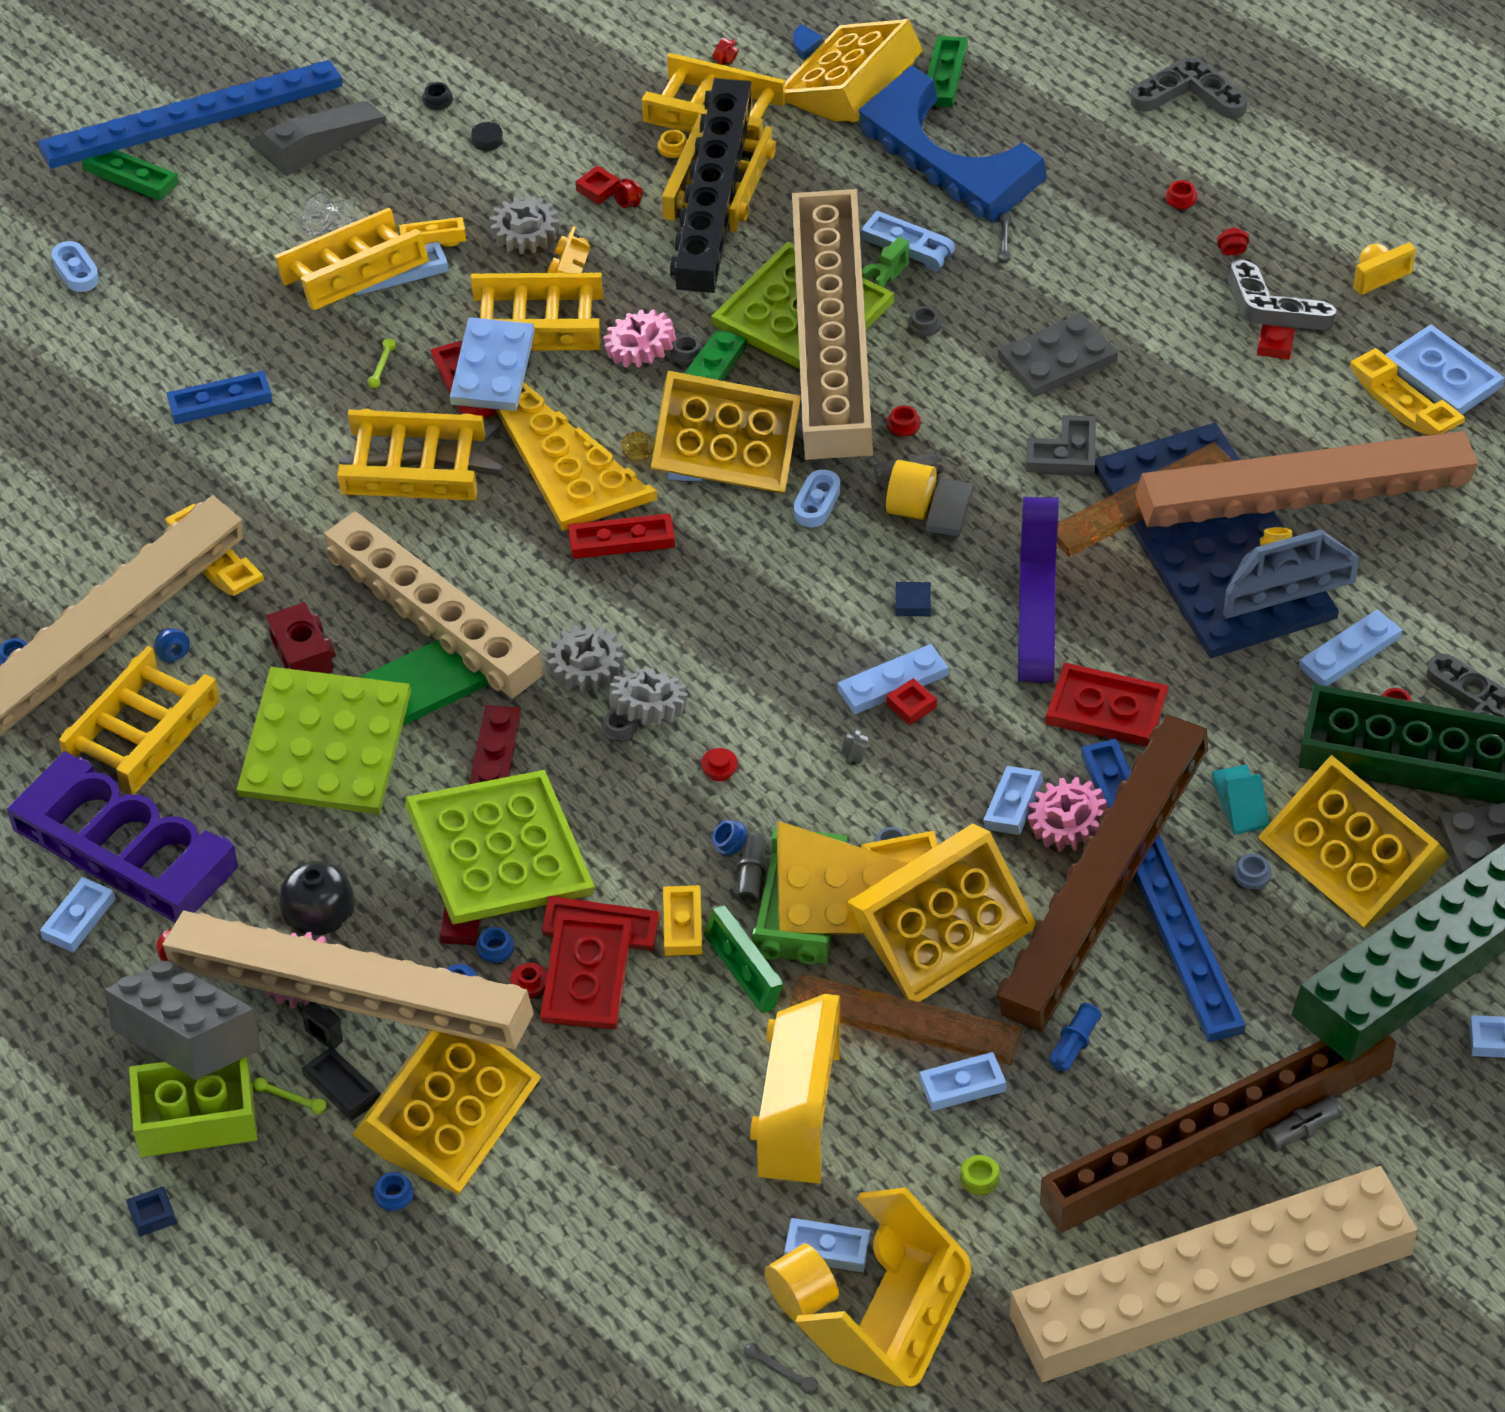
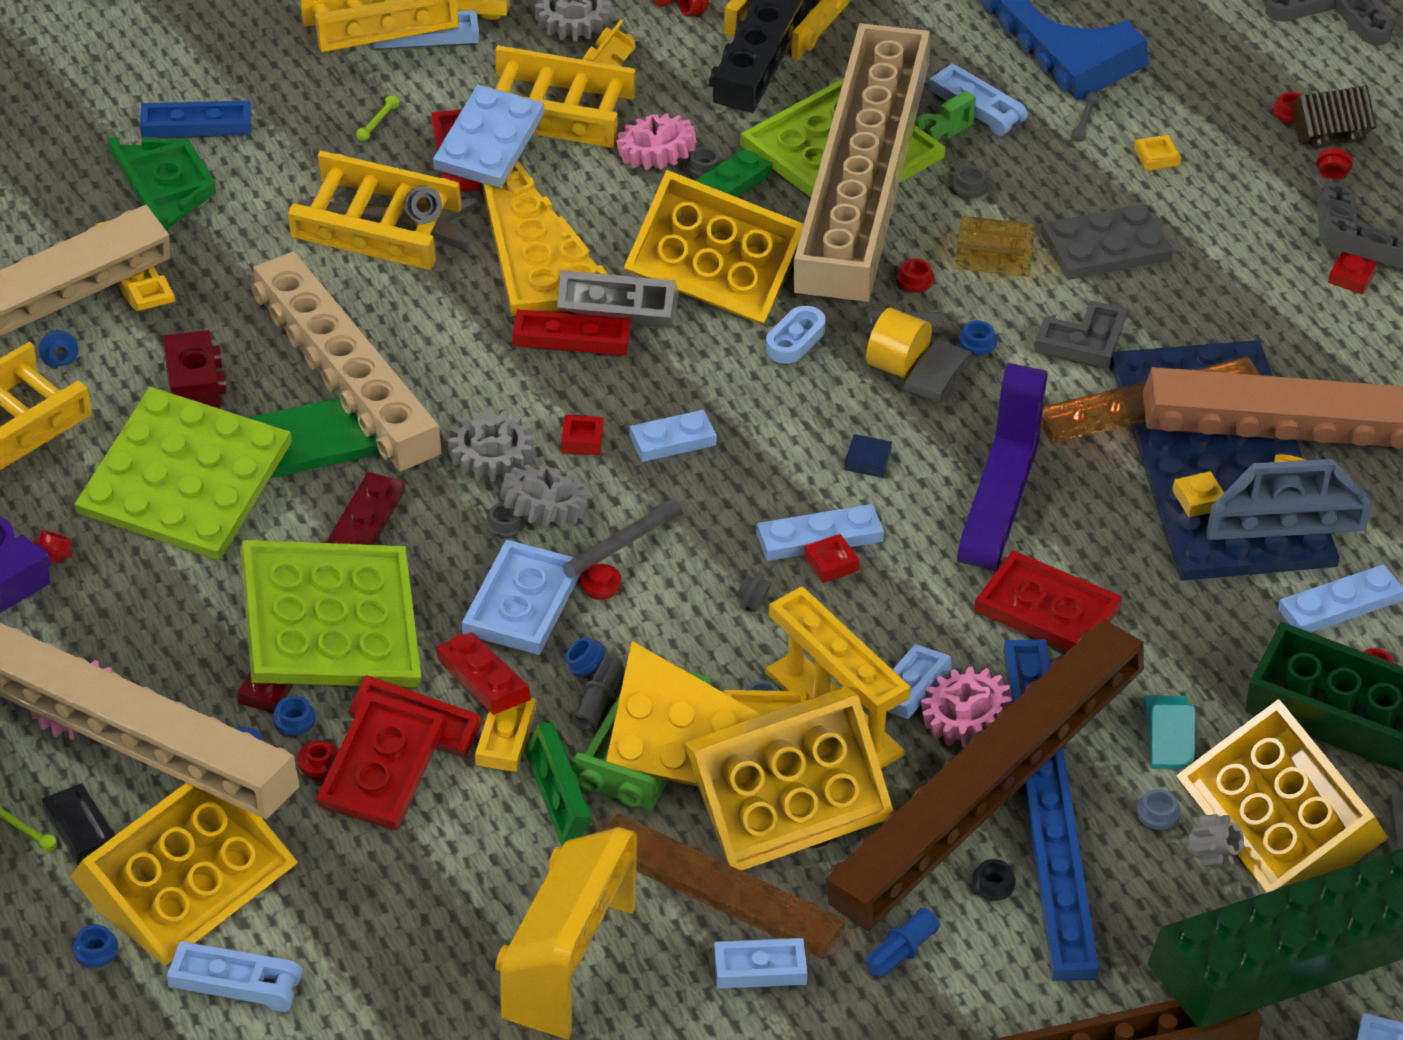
camera: 10 degrees right, 5 degrees down
(209, 458) = (164, 176): none -> green wing
(234, 831) = (55, 545): none -> red plate
(316, 898) = (119, 628): black cylinder -> none
(322, 1024) = (79, 758): black plate -> none
(466, 443) = (433, 200): none -> plate
(522, 1190) = (234, 975): none -> light blue plate
(637, 445) = (618, 246): clear yellow plate -> none
(647, 871) = (483, 673): none -> red plate
(655, 496) = (637, 298): none -> light grey slope
(657, 793) = (520, 598): none -> light blue plate
(661, 631) = (582, 434): none -> red plate
(727, 721) = (622, 538): none -> flat silver bar
(738, 615) = (672, 435): none -> light blue plate
(951, 793) = (836, 654): none -> yellow fence
(965, 379) = (995, 246): none -> clear yellow brick
(975, 469) = (978, 338): none -> blue plate
(1077, 260) = (1157, 152): none -> yellow tile
(1137, 956) = (996, 871): none -> black plate
(1207, 578) = (1197, 493): none -> yellow plate
(1221, 196) = (1333, 116): none -> dark brown brick
(1309, 889) = (1216, 840): none -> light grey gear

